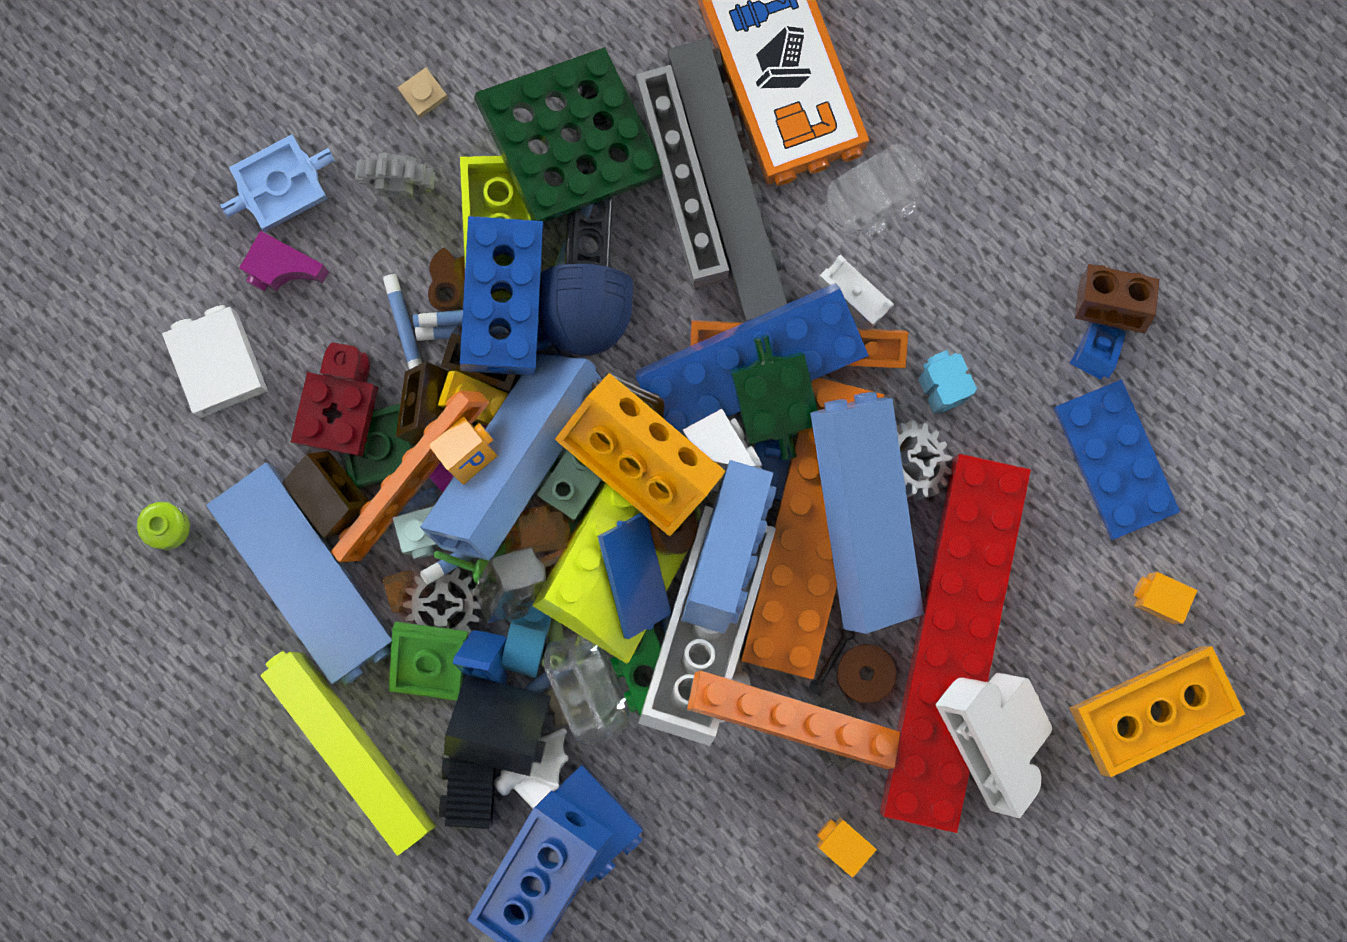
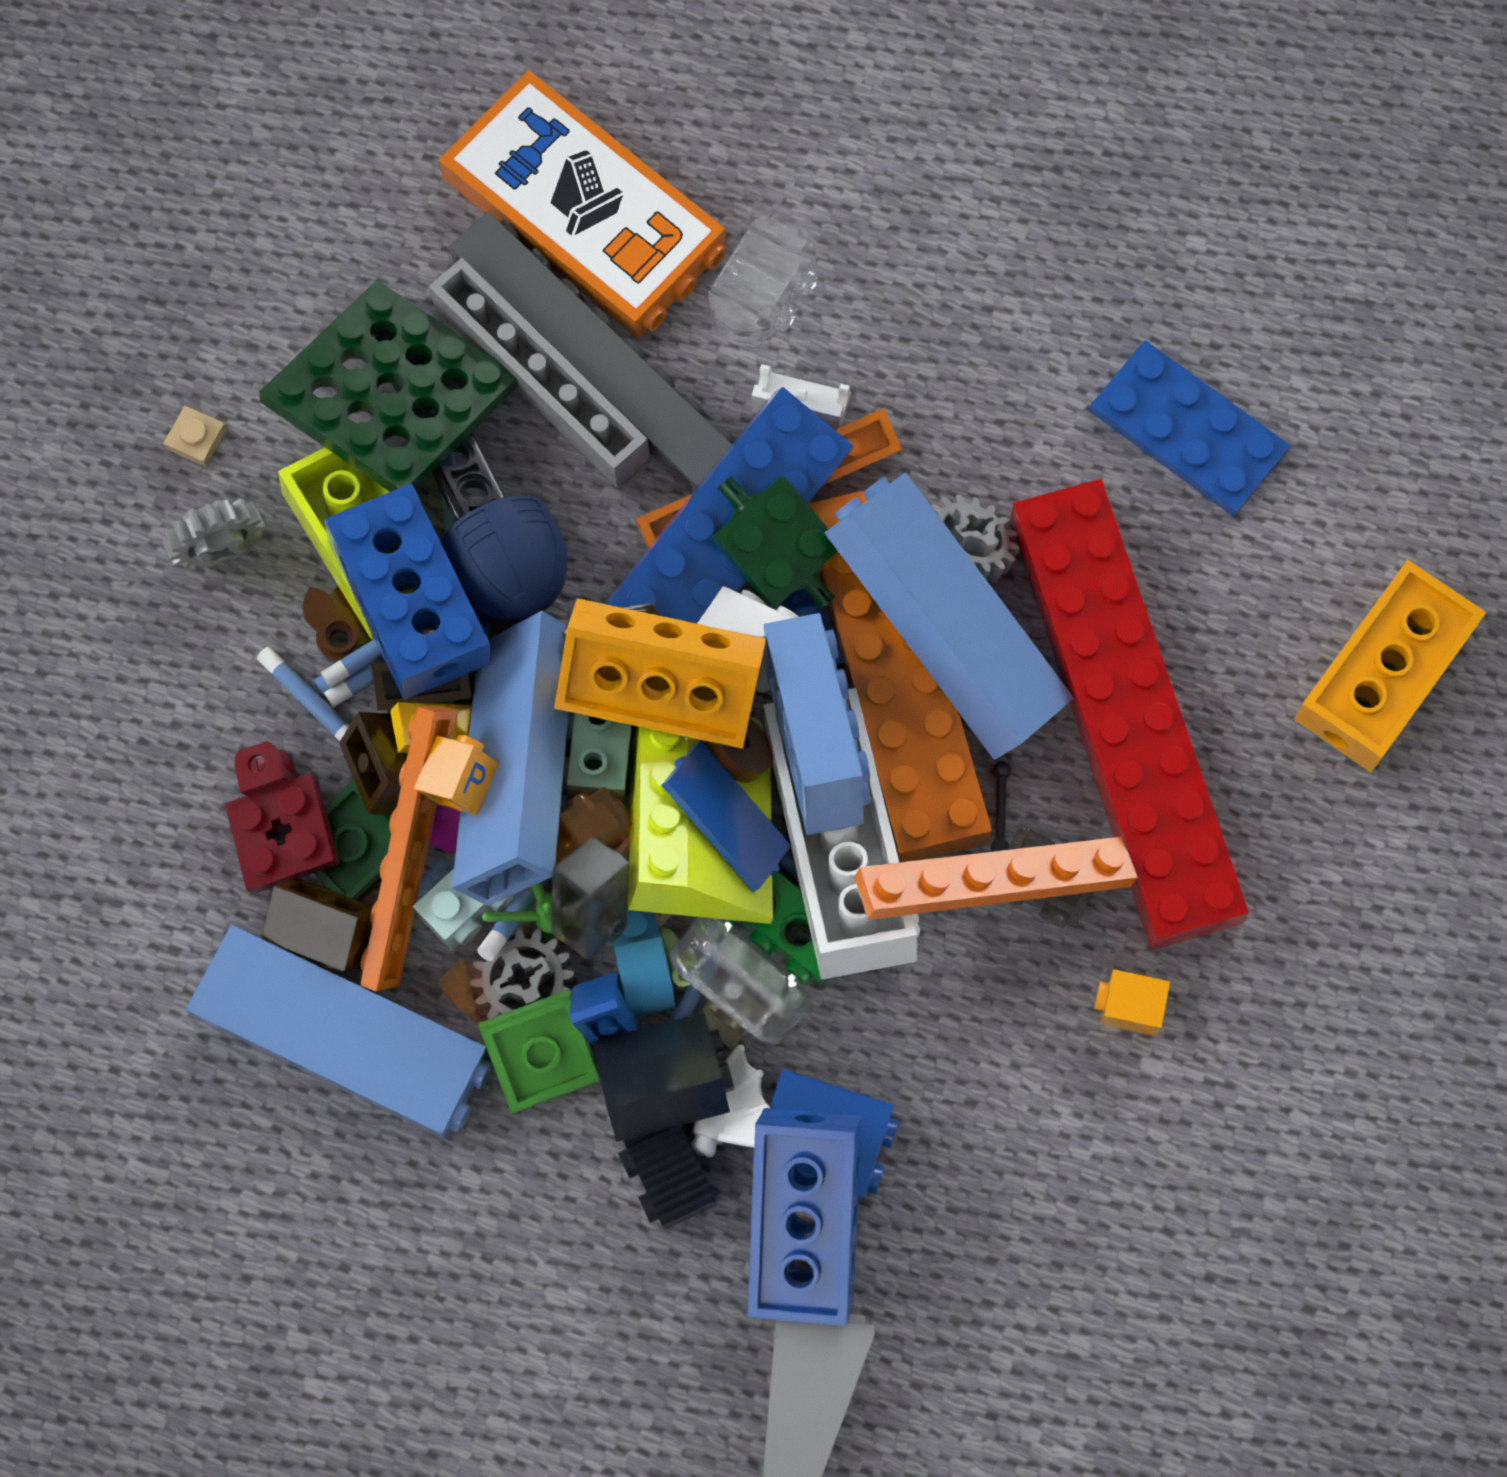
camera: 25 degrees left, 10 degrees down
(163, 526) = (146, 1063): lime head -> none
(214, 361) = (109, 848): white brick -> none
(275, 263) = (124, 701): magenta arch -> none
(278, 183) = (80, 615): light blue plate -> none
(347, 750) = (502, 1197): neon yellow brick -> none
(849, 673) = (1051, 781): reddish brown piece -> none
(946, 382) = (956, 436): medium azure brick -> none
(998, 733) = (1234, 780): white brick -> none
(1099, 350) = (1102, 322): blue slope -> none
(1116, 302) = (1090, 257): reddish brown brick -> none
(1164, 597) = (1327, 543): light orange brick -> none

